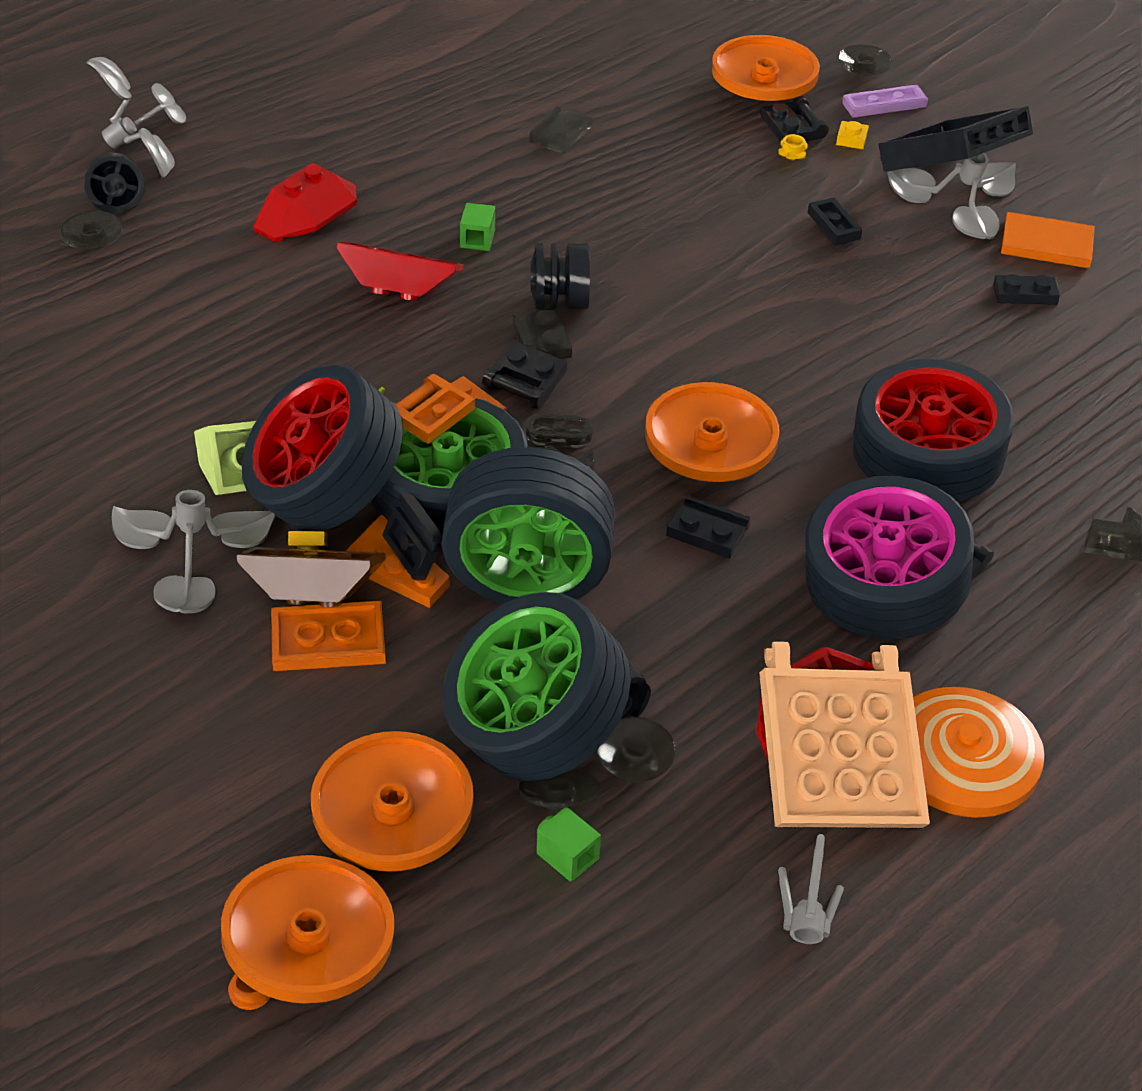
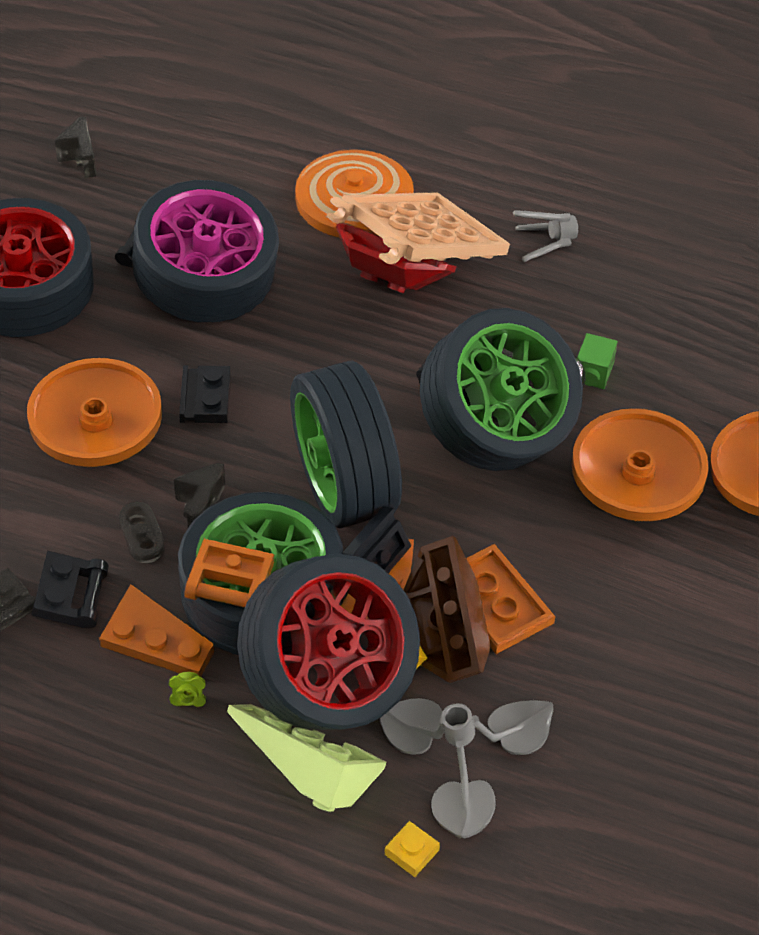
camera: 115 degrees left, 5 degrees up
(134, 485) = (412, 848): none -> yellow plate

